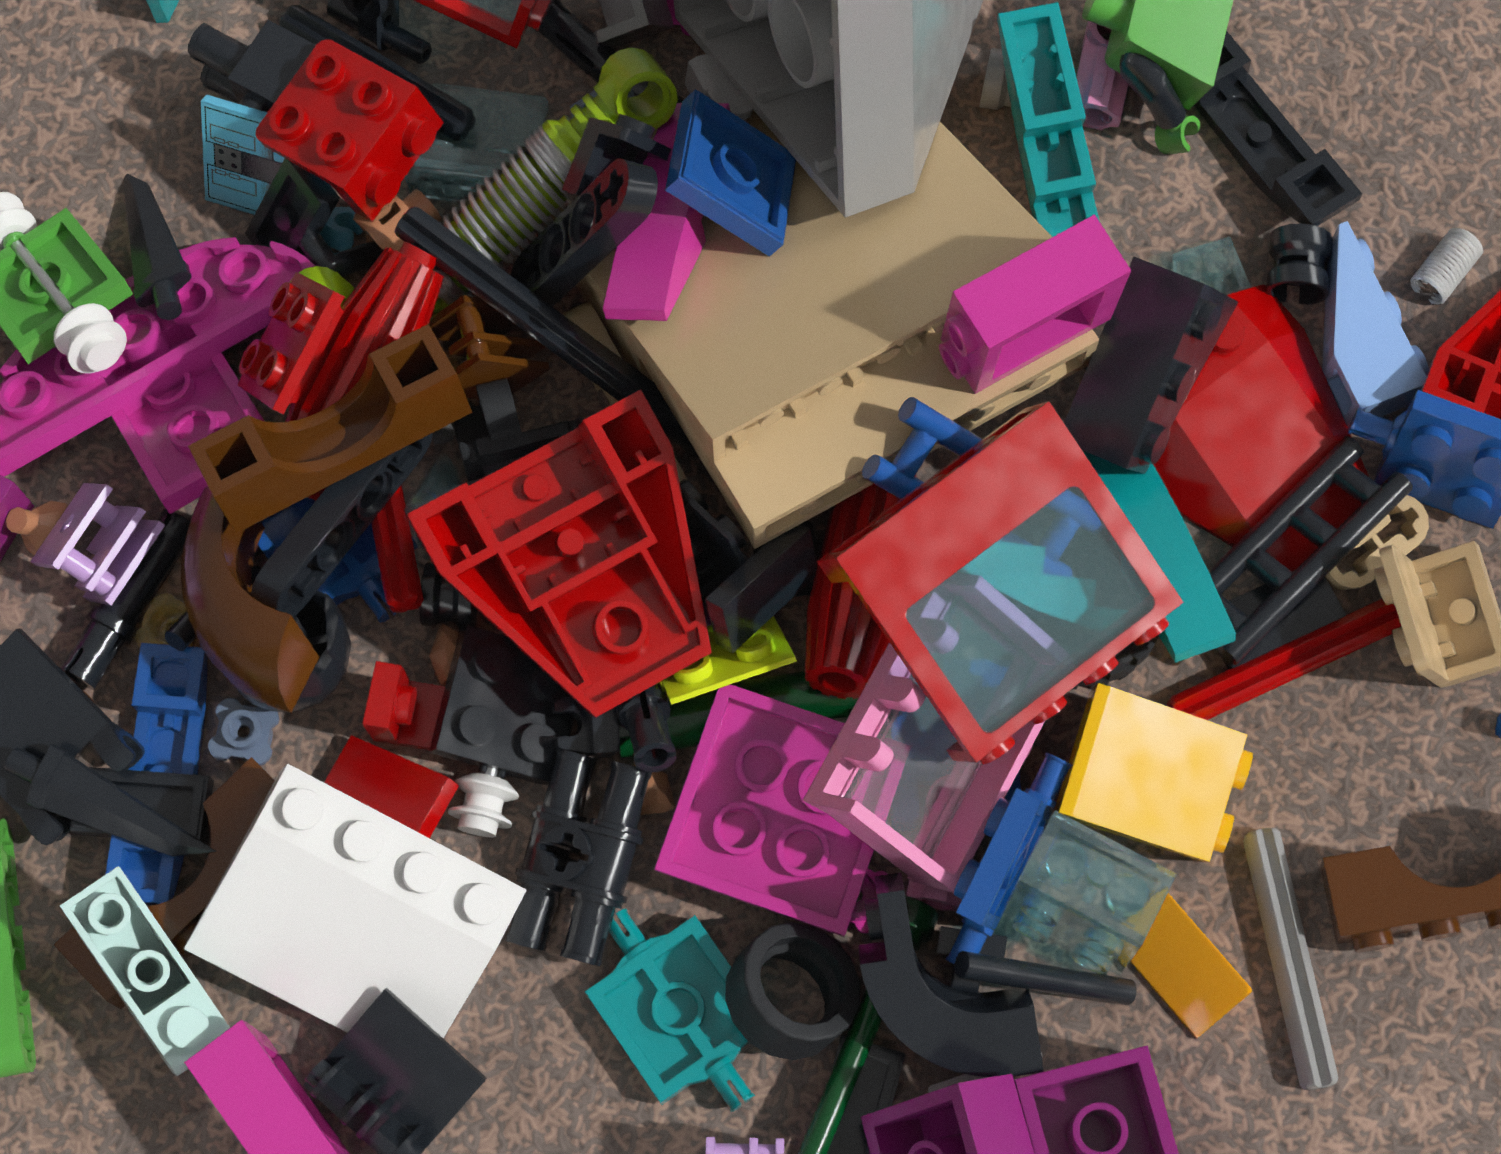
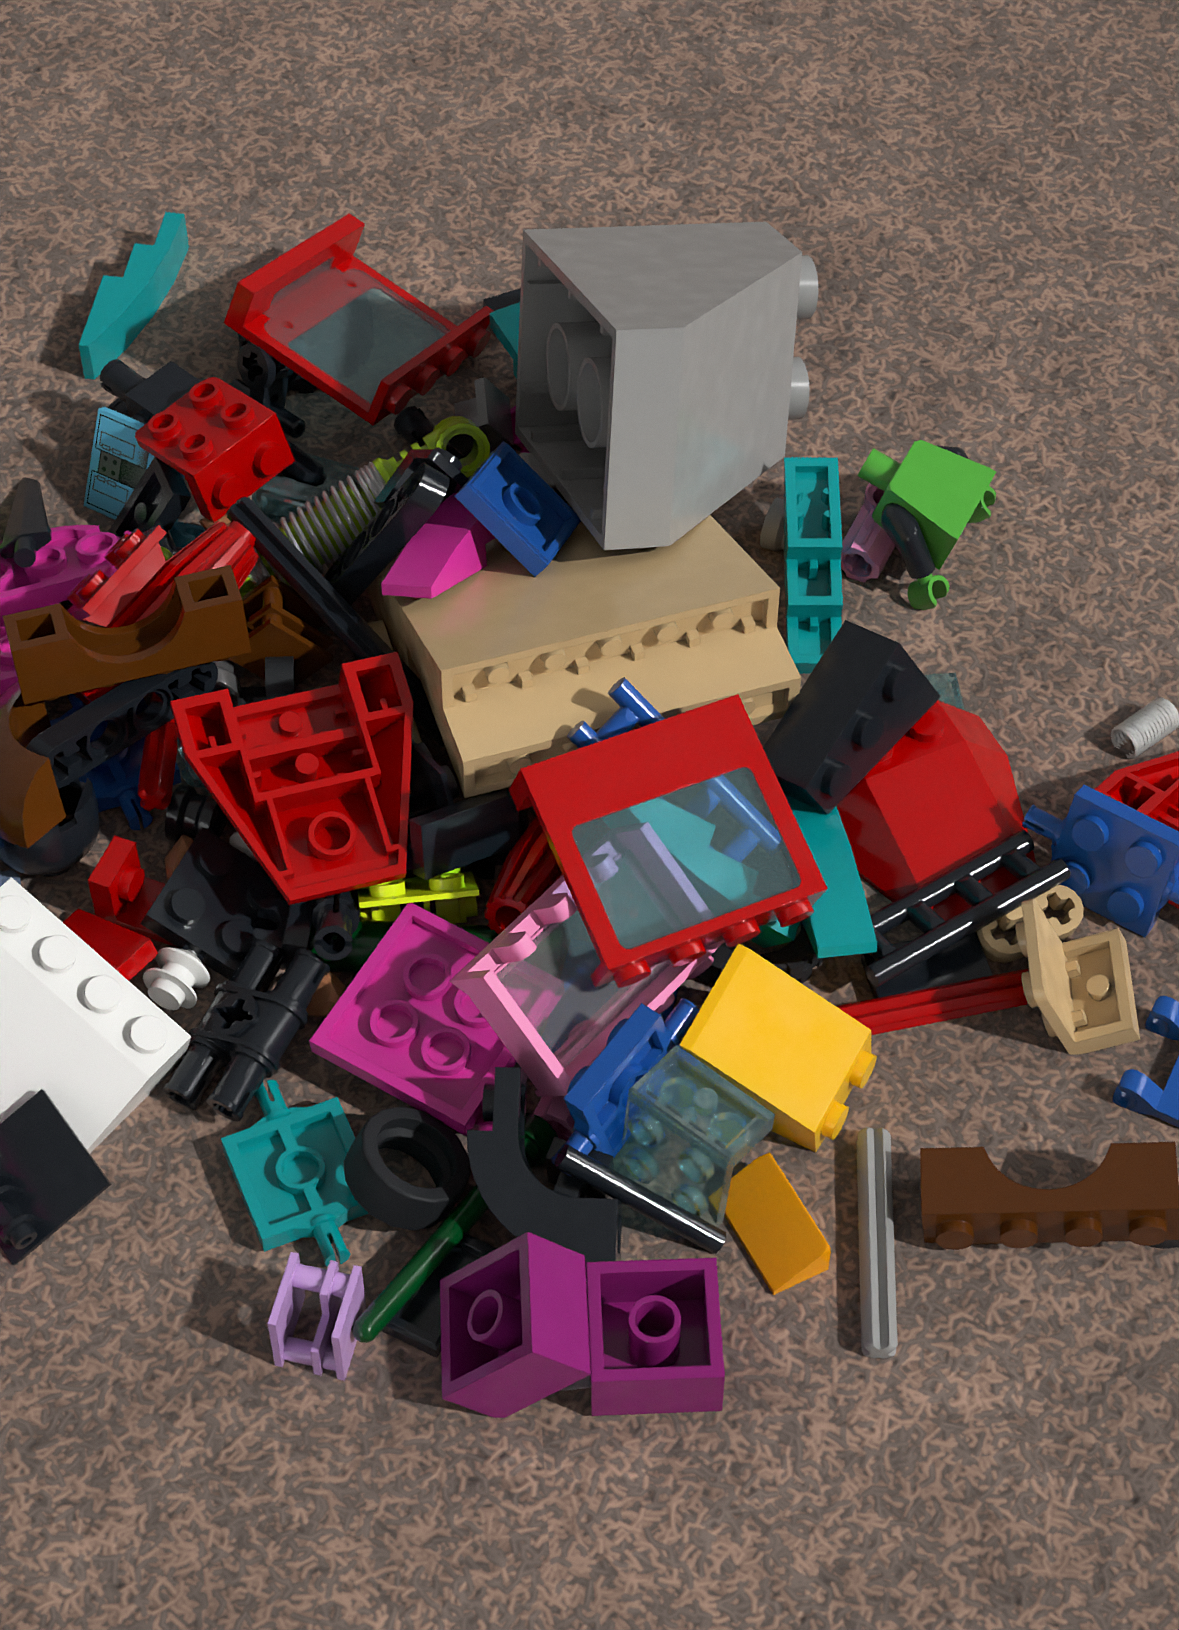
camera: 10 degrees right, 20 degrees down
(1033, 304) = (732, 593): dark pink window -> none
(1268, 146) = (1000, 603): black slope -> none
(1300, 261) = (1012, 699): black wheel -> none
(1363, 342) = (1057, 754): light blue slope -> none

